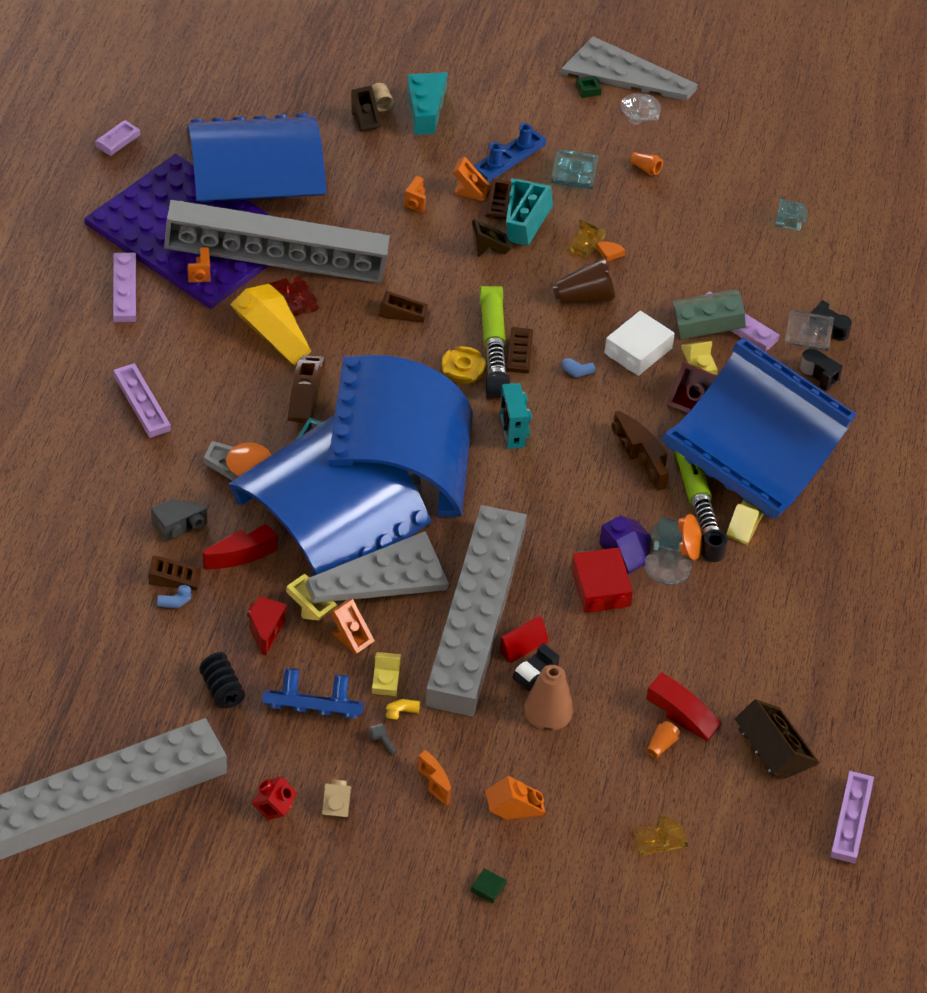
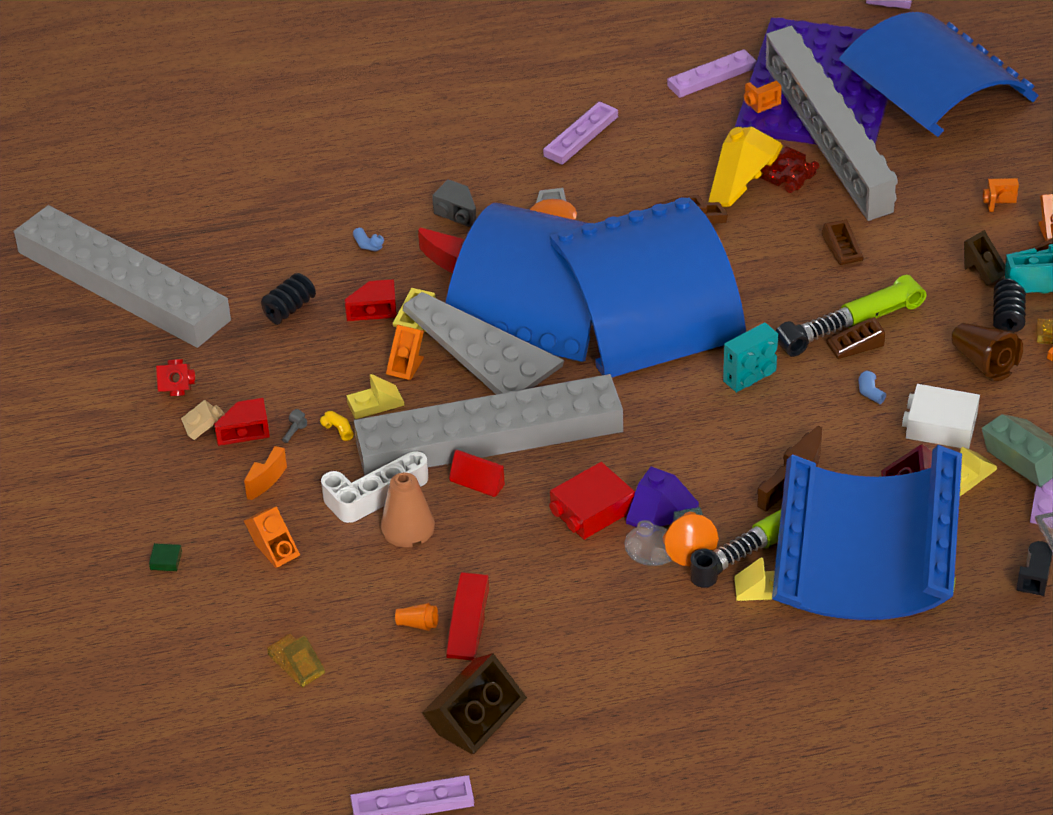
camera: 70 degrees right, 5 degrees down
(174, 567) = (393, 226): reddish brown slope -> none
(301, 702) = (299, 356): blue plate -> none
(361, 767) = (243, 423): none -> red slope
(463, 365) = (804, 307): yellow tile -> none
(504, 730) = (369, 493): none -> white beam
(528, 671) = (447, 496): black leg -> none
(548, 252) = (1009, 306): none -> black piece

